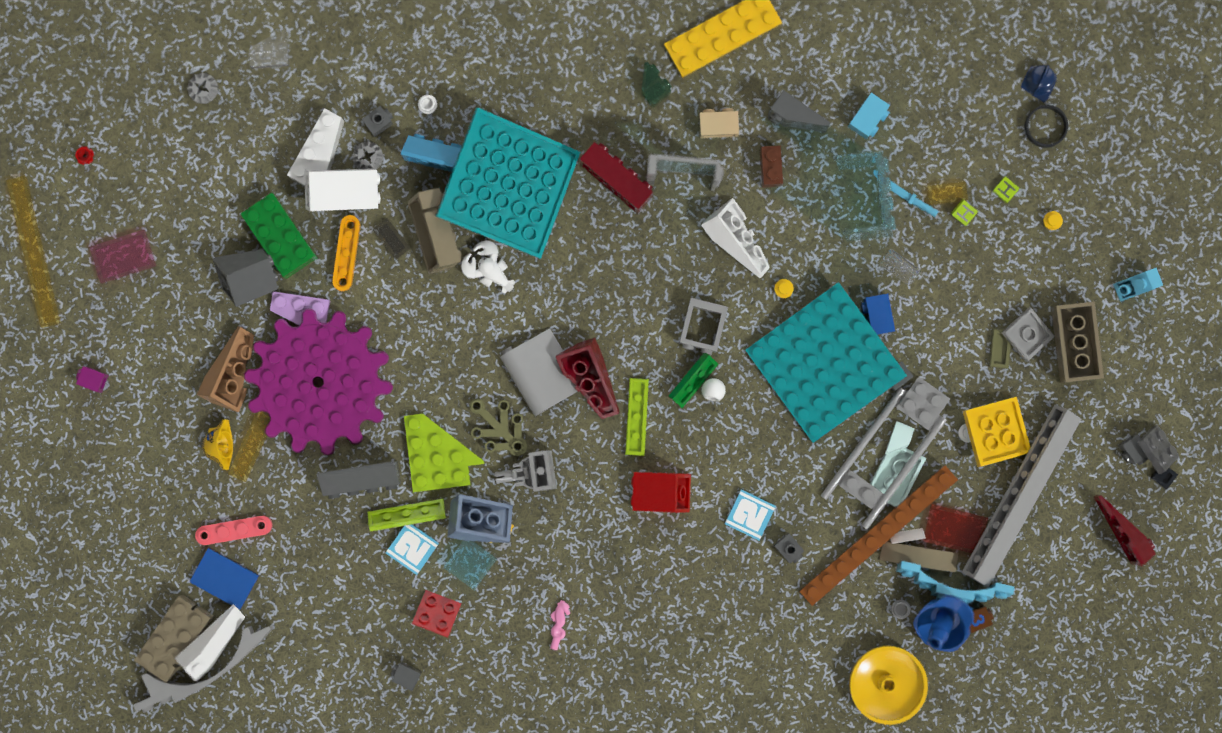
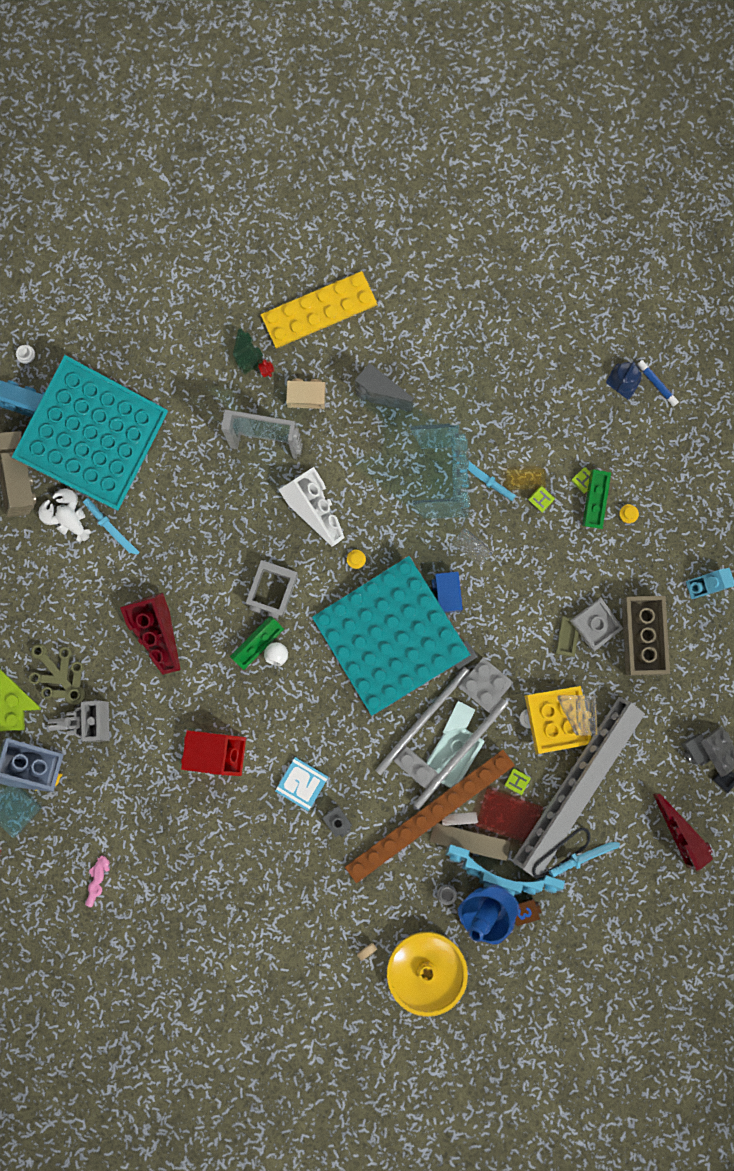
camera: 10 degrees right, 5 degrees down
(527, 270) = (104, 521): none -> medium azure sword
(538, 372) = (102, 622): light grey door -> none
(616, 177) = (195, 433): dark red brick -> none
(637, 417) = (197, 675): lime tile -> none
(675, 100) = (266, 368): none -> red plate
(771, 166) = (353, 438): copper brick -> none
(828, 669) = (364, 953): none -> tan tile
(869, 115) = (454, 398): medium azure brick -> none
(960, 495) = (517, 781): none -> lime tile
(1004, 555) = (559, 845): none -> black piece
(1018, 423) = (580, 713): none -> clear wing
(1019, 208) = (596, 499): none -> green plate
(1024, 566) = (576, 861): none -> medium azure sword
(1062, 115) = (641, 408): black tyre -> none
(1073, 83) = (657, 383): none -> blue bar

